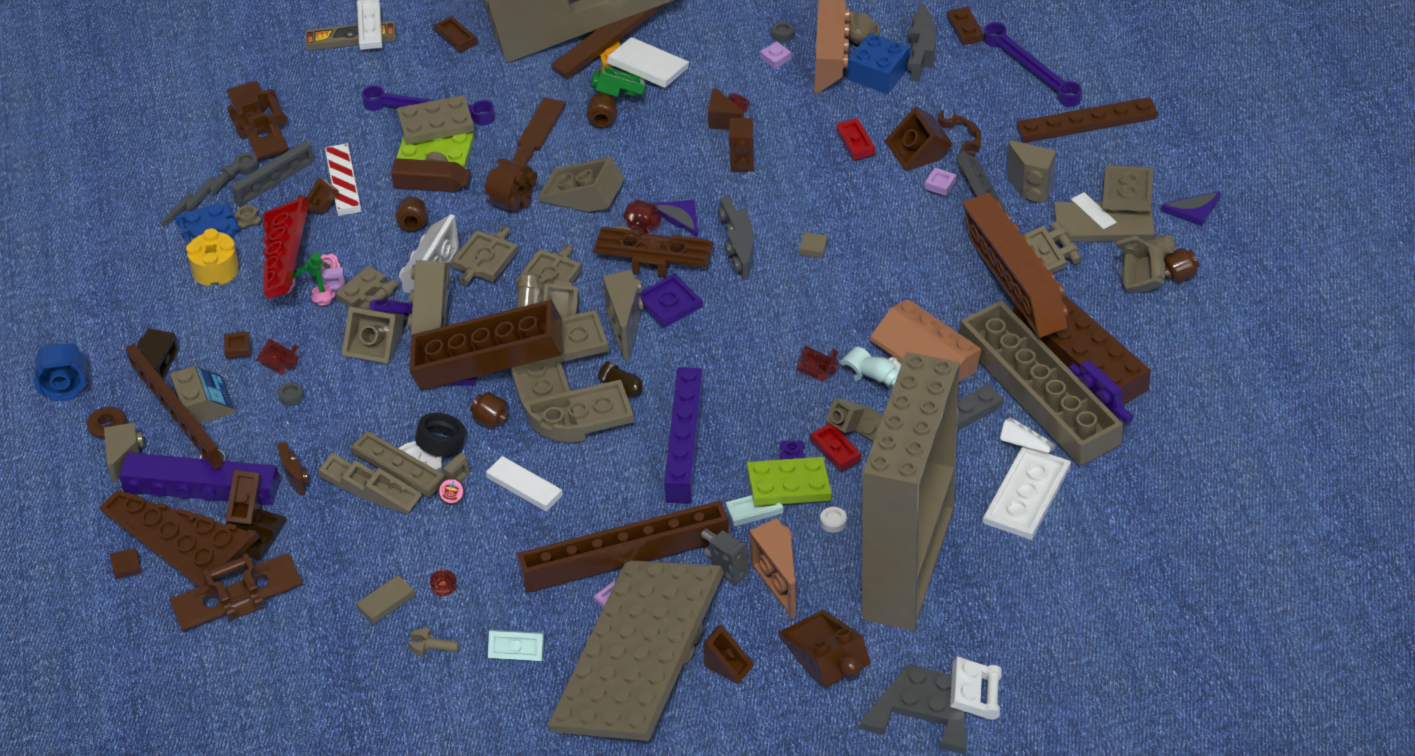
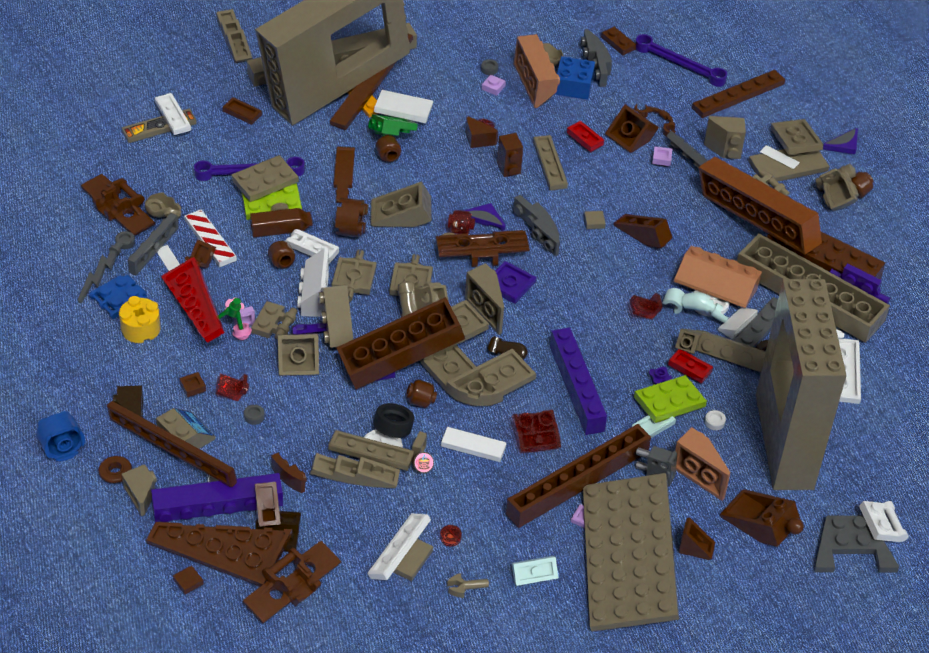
camera: 25 degrees left, 0 degrees up
(247, 216) = (148, 281): dark tan plate -> none
(285, 191) = (168, 257): none -> white sticker
(303, 128) = (160, 205): none -> dark tan hair
(375, 580) = (399, 546): none -> white tile
(446, 203) = (310, 244): none -> white plate
(602, 484) = (537, 431): none -> clear red slope
(795, 164) = (550, 162): none -> dark tan tile
(868, 269) = (647, 230): none -> reddish brown slope

